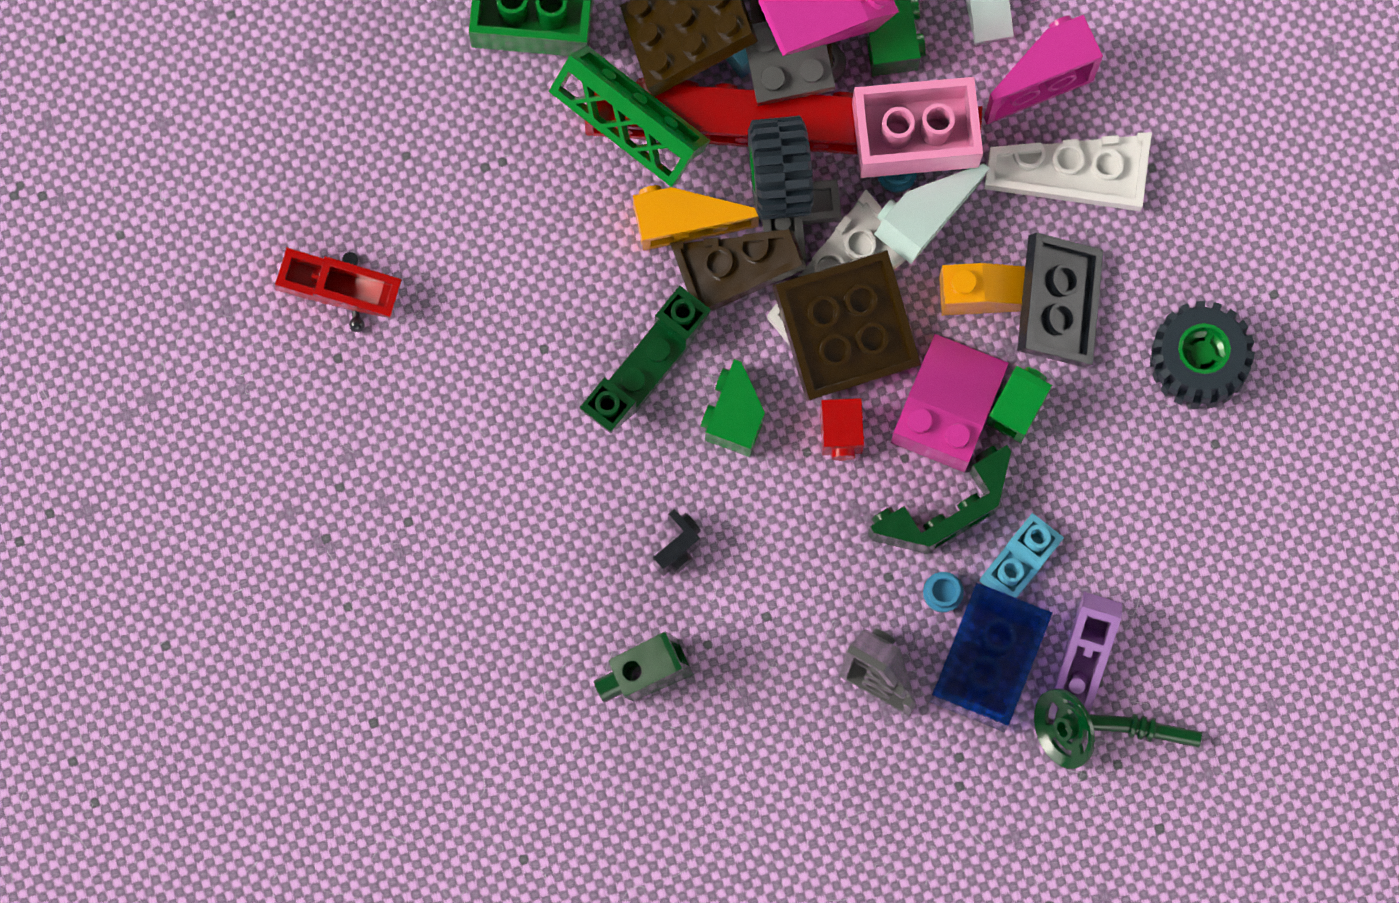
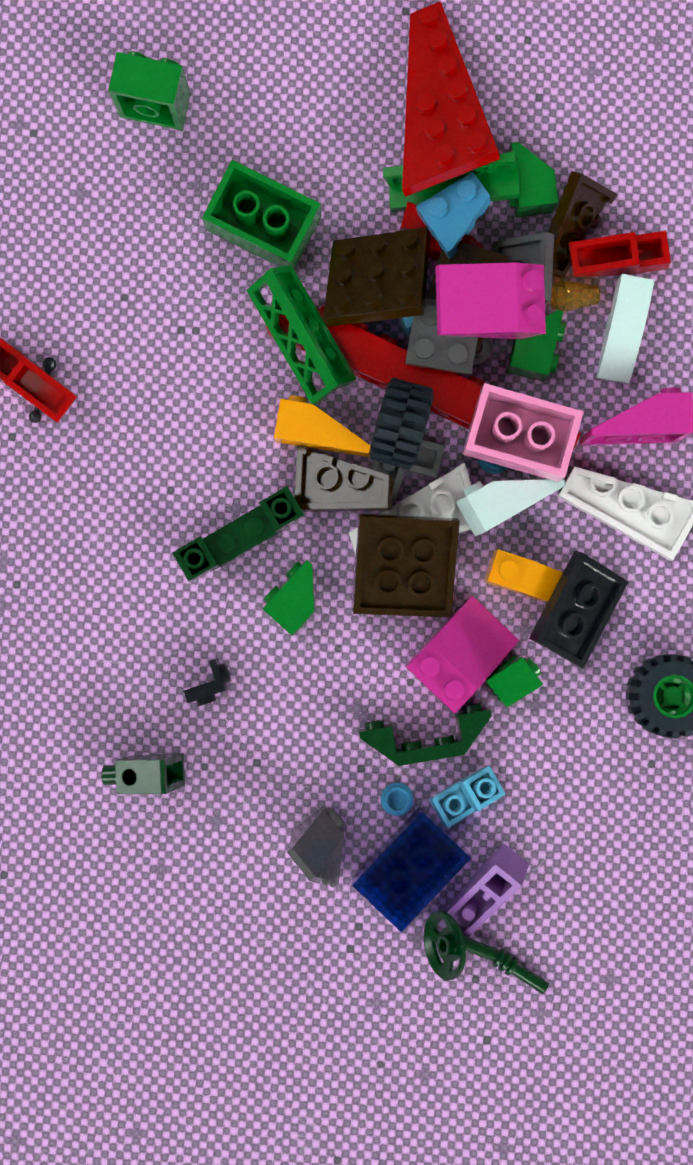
camera: 25 degrees right, 10 degrees up
(842, 428) = (370, 644): red brick -> none

